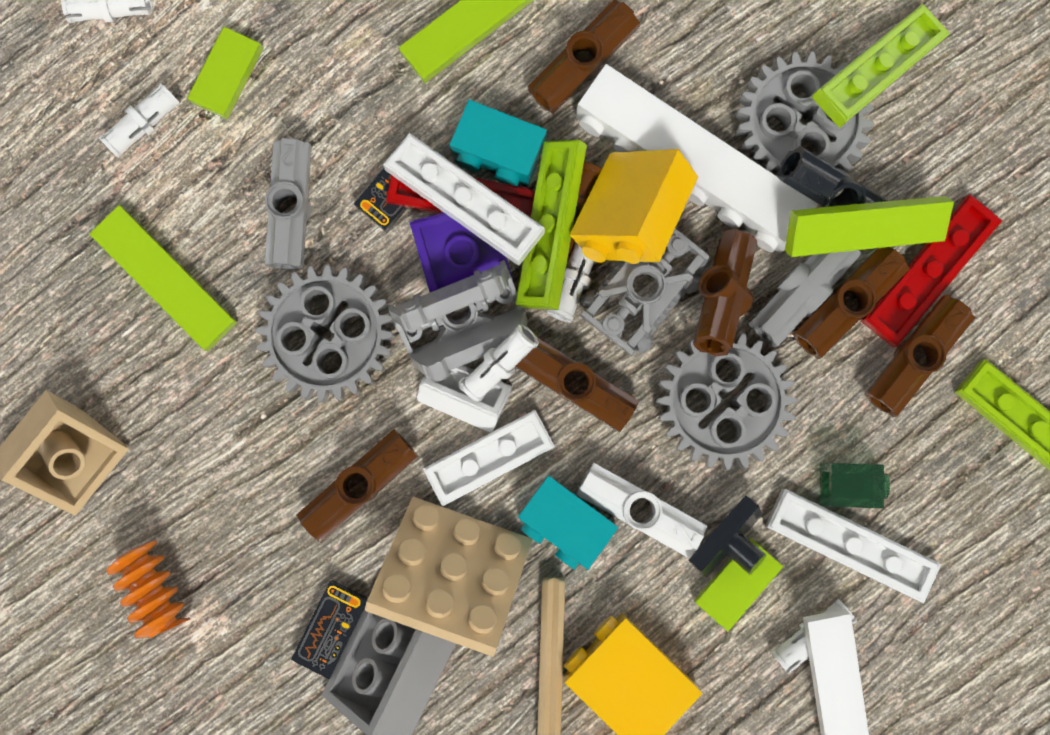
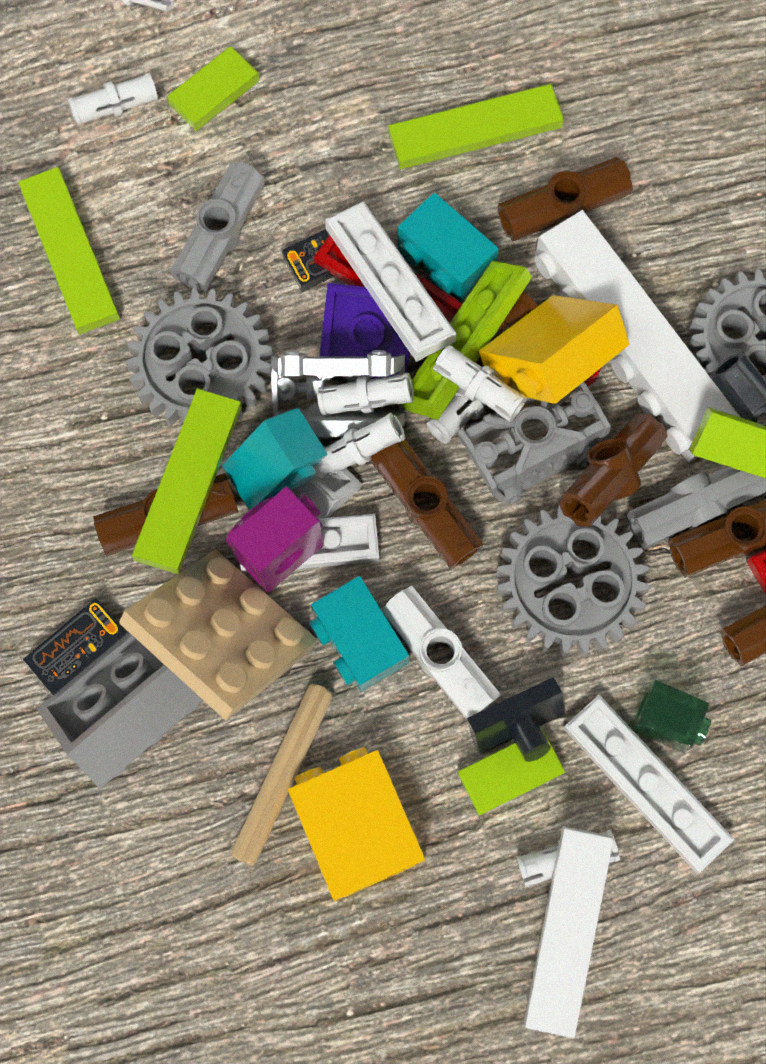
camera: 20 degrees right, 10 degrees down
(366, 455) = (187, 481): none -> lime tile
(435, 405) = (275, 456): none -> teal brick
(463, 476) = (276, 537): none -> magenta brick
(486, 313) = (365, 394): none -> white pin
(584, 267) = (479, 383): none -> white pin

